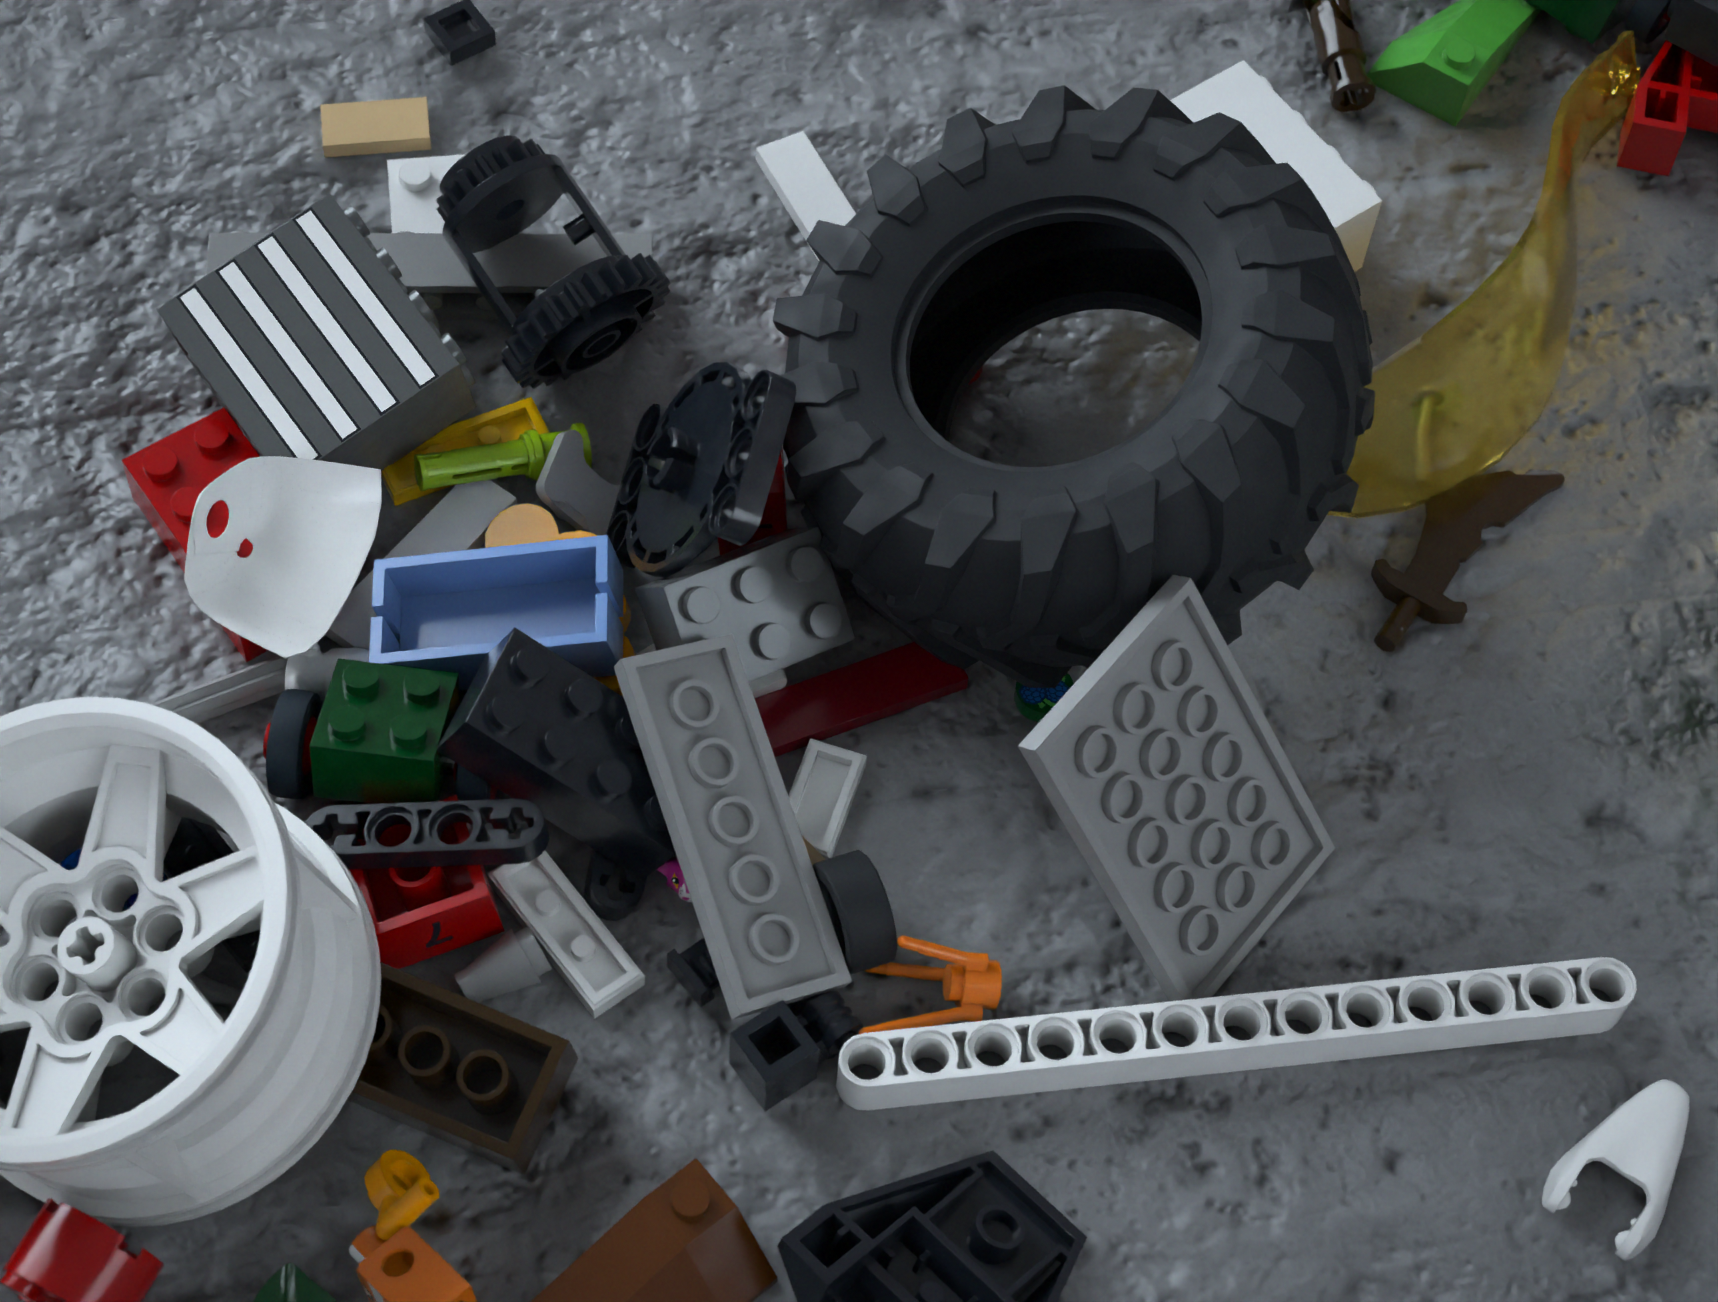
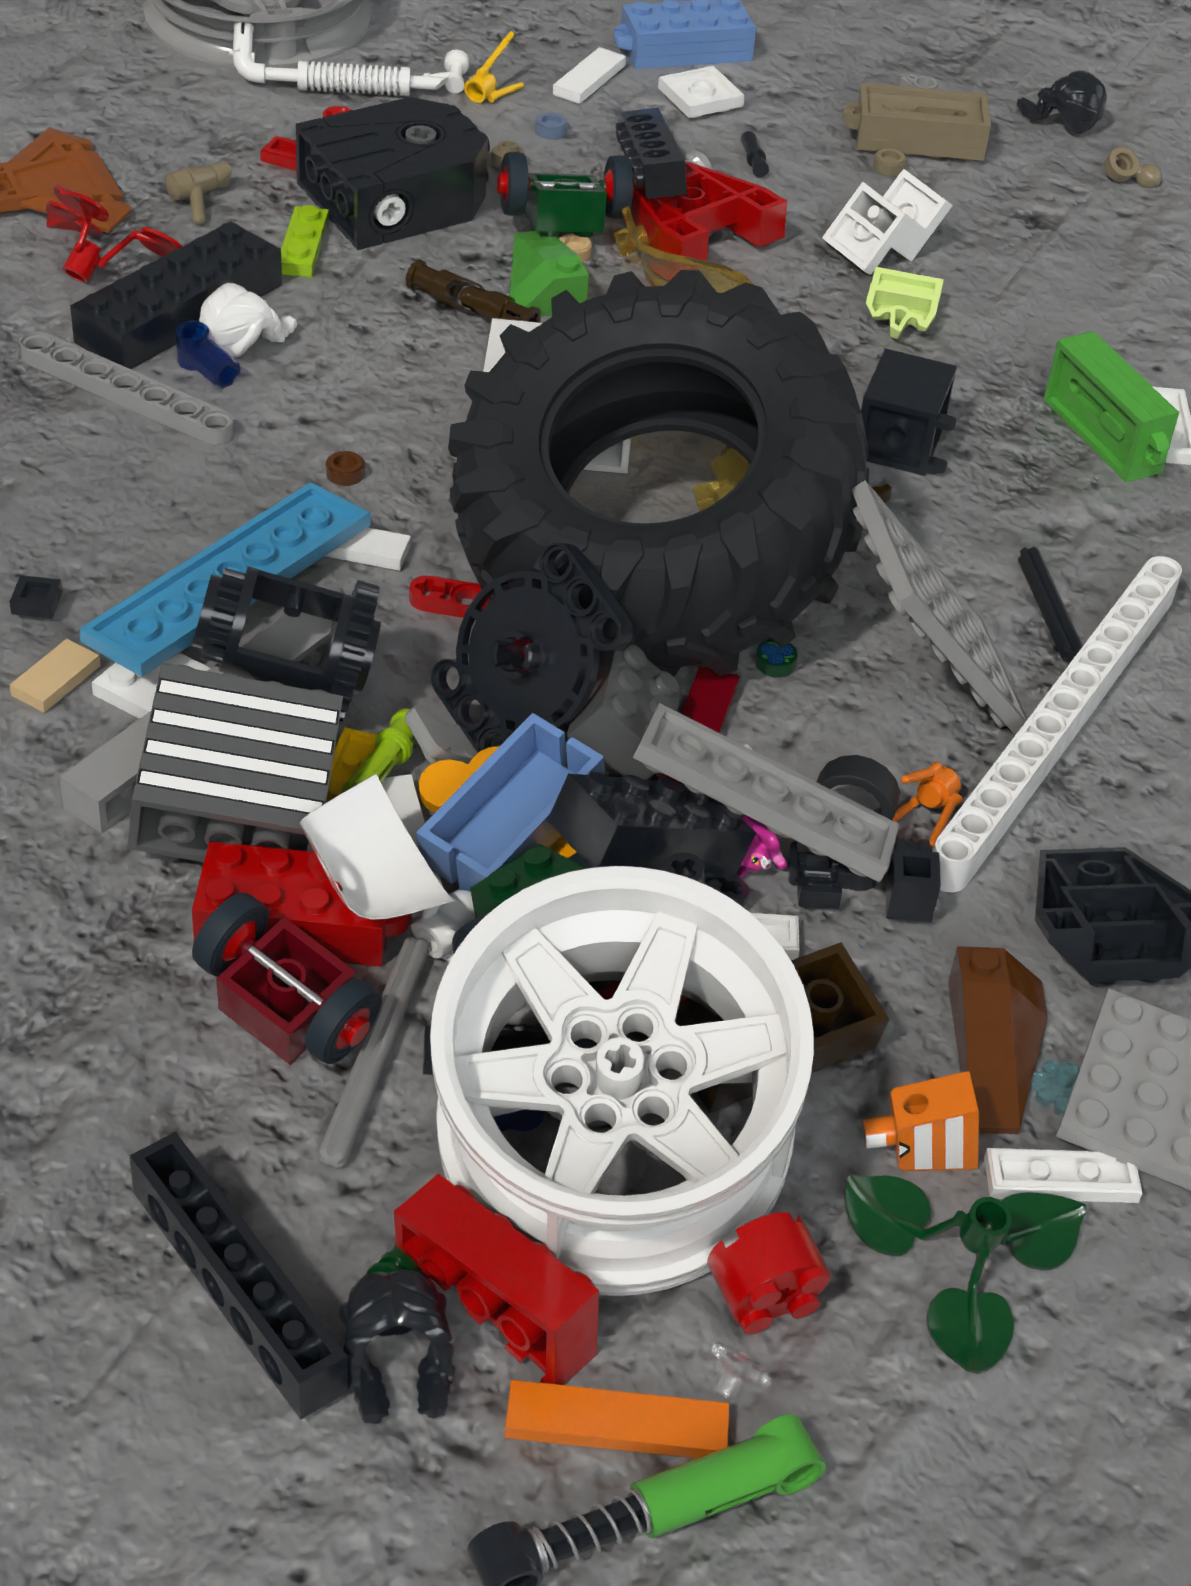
camera: 50 degrees left, 15 degrees down
(102, 594) = (283, 983): none -> brick
(399, 1190) = (839, 1102): light orange plate -> none
(648, 145) = (280, 541): none -> dark azure plate
(927, 116) = (345, 468): none -> reddish brown tile
(1442, 899) = (1050, 603): none -> black axle
(1547, 40) = (580, 245): none -> tan tile
(1594, 537) = (908, 412): none -> black container

